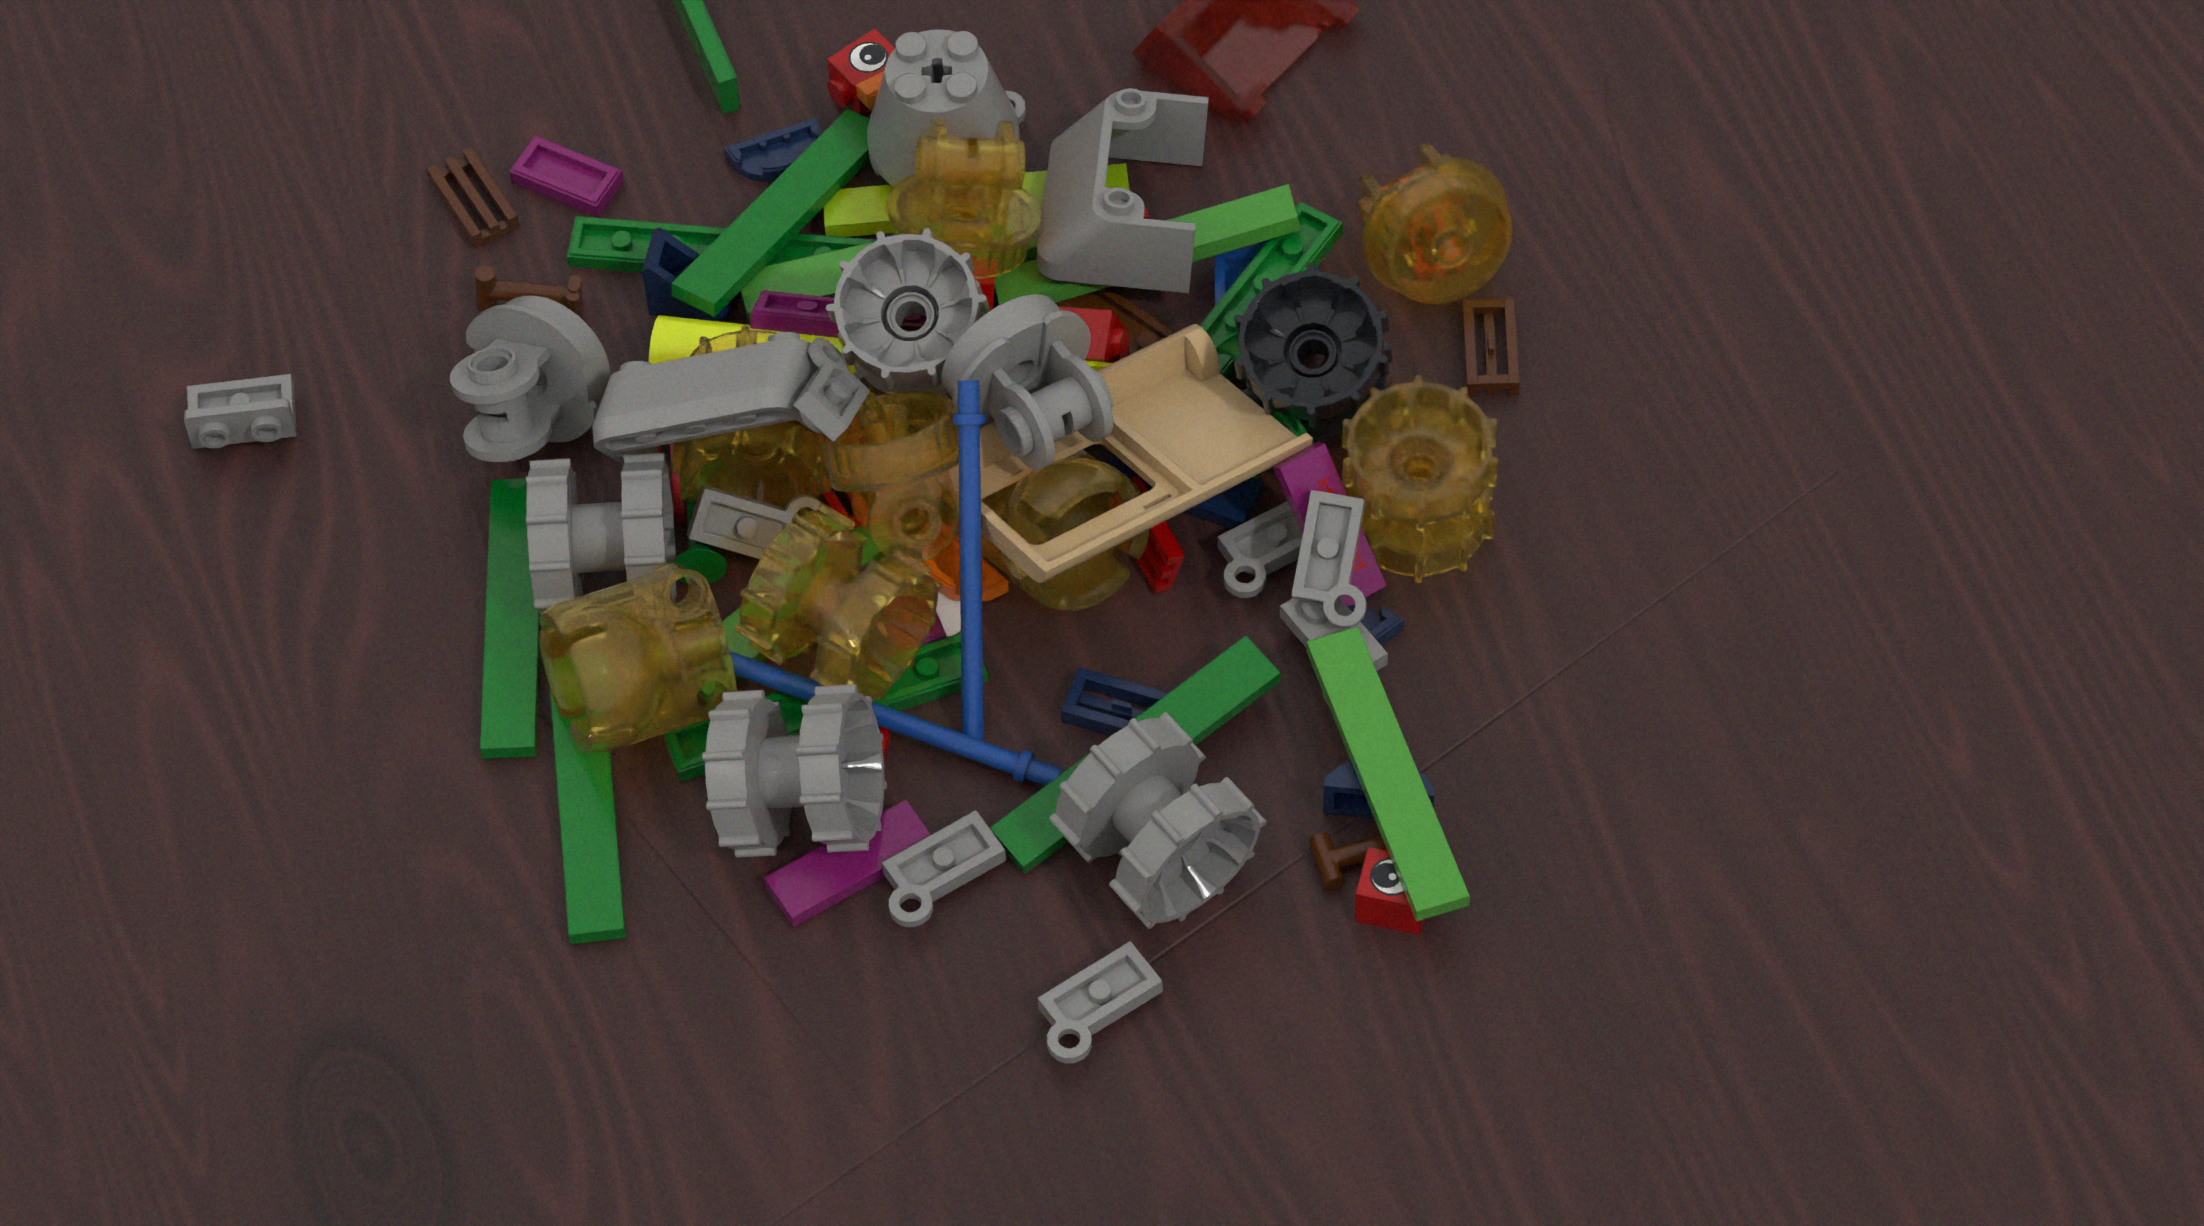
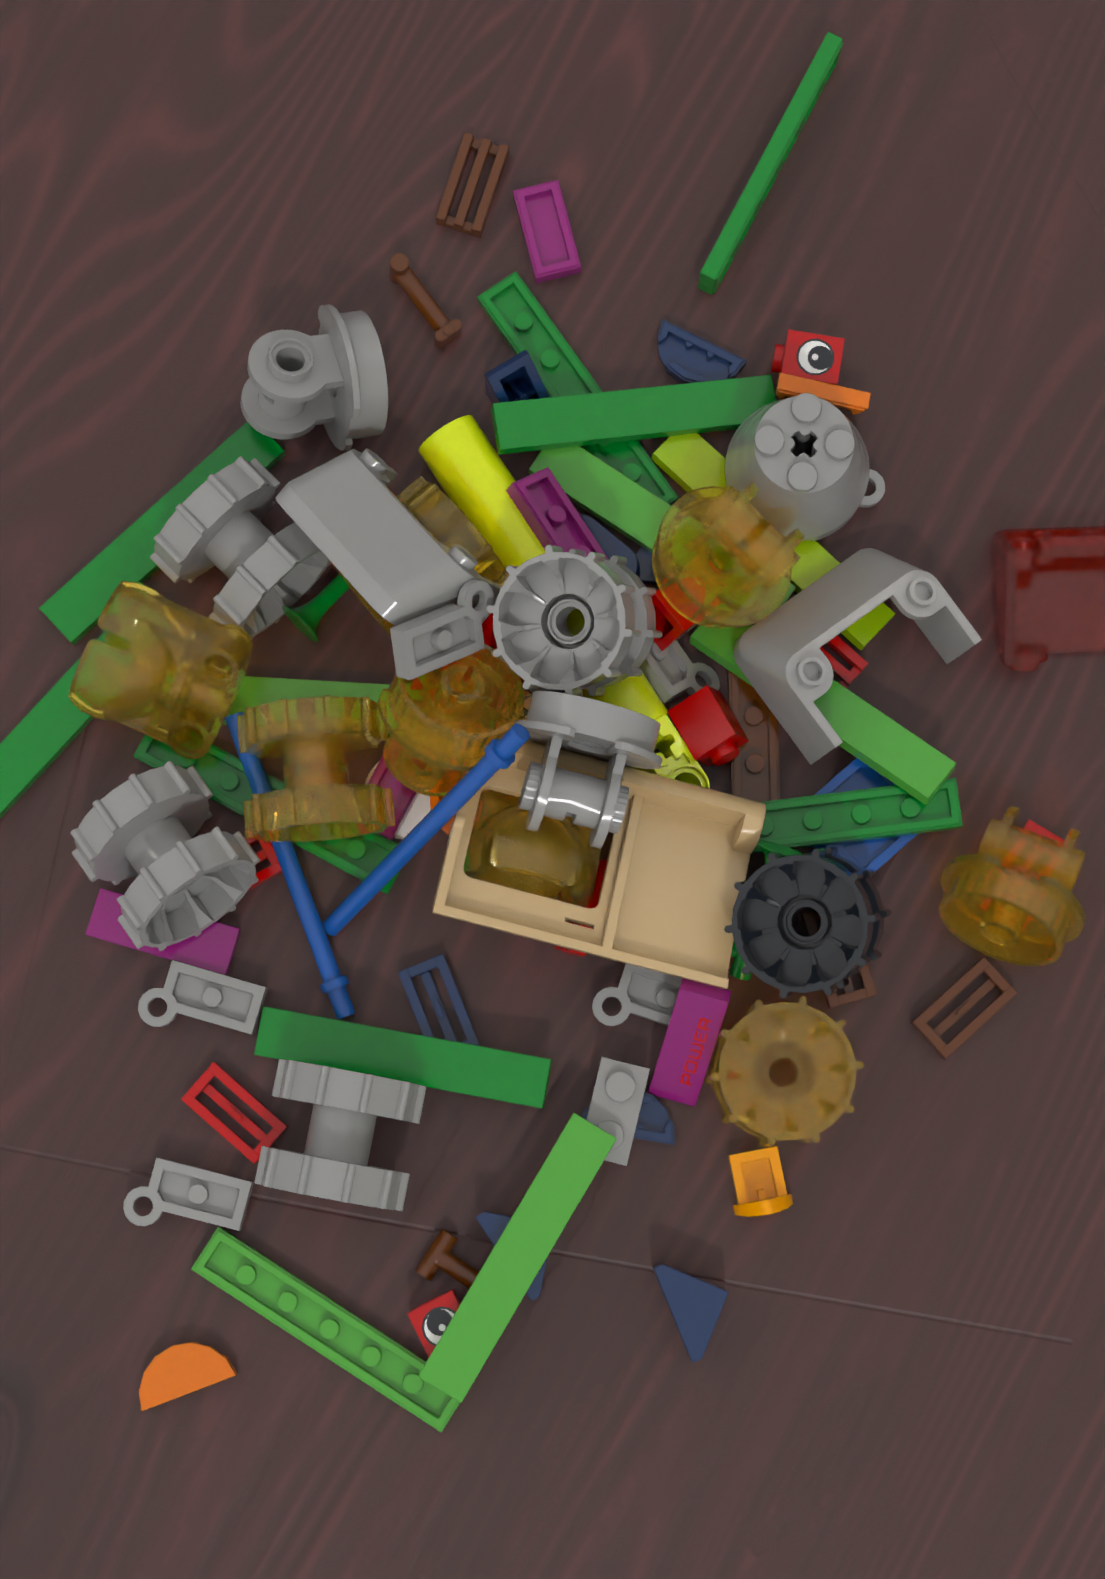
camera: 45 degrees right, 25 degrees up
(241, 411) = (161, 198): light grey bracket -> none
(740, 521) = (352, 630): light grey hinge -> none
(1057, 932) = (203, 1084): none -> red tile
(1240, 1124) = (182, 1371): none -> orange tile
(1311, 987) = (323, 1325): none -> bright green tile
(1329, 555) = (655, 1071): light grey hinge -> none
(1493, 587) = (759, 1182): none -> light orange tile
(1547, 700) = (693, 1306): none -> dark blue slope

